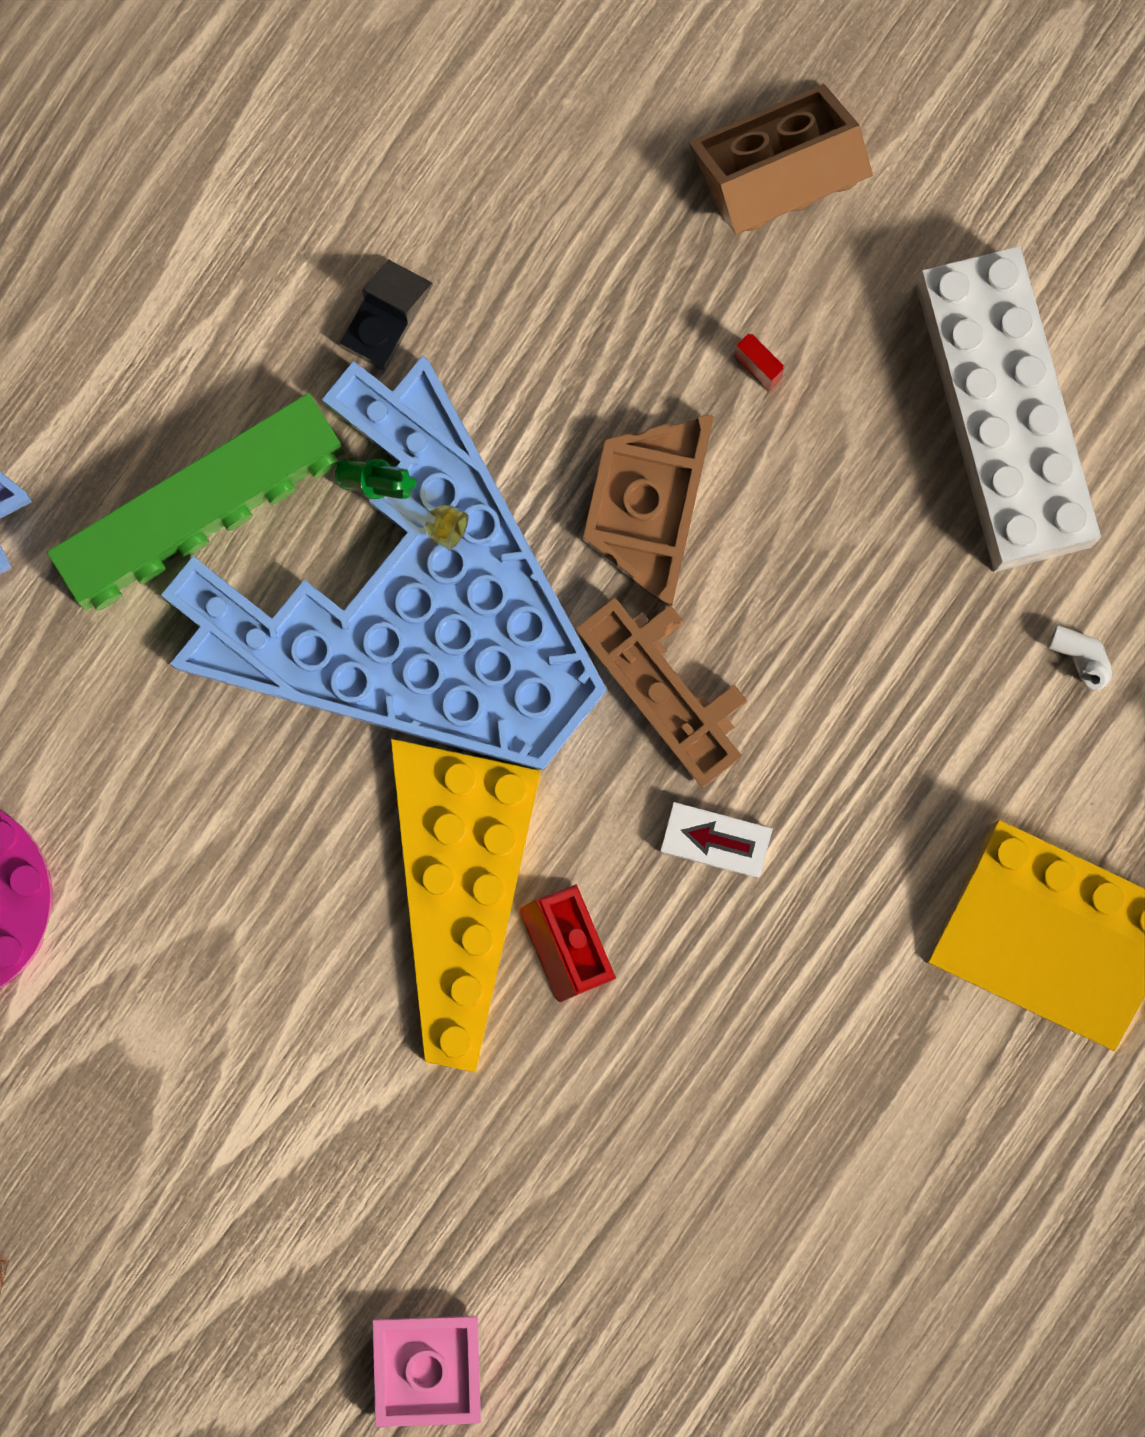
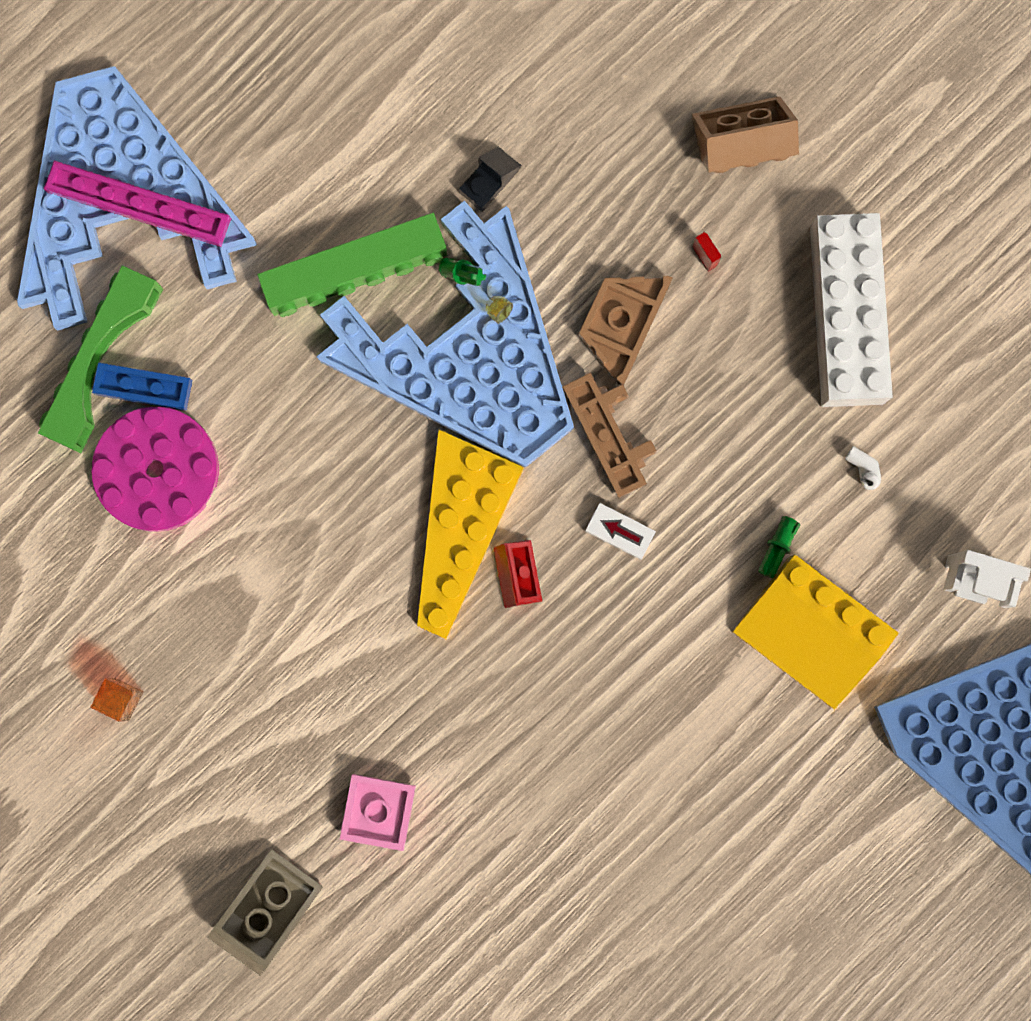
camera: 15 degrees right, 0 degrees up
(972, 811) = (779, 546): none -> green axle

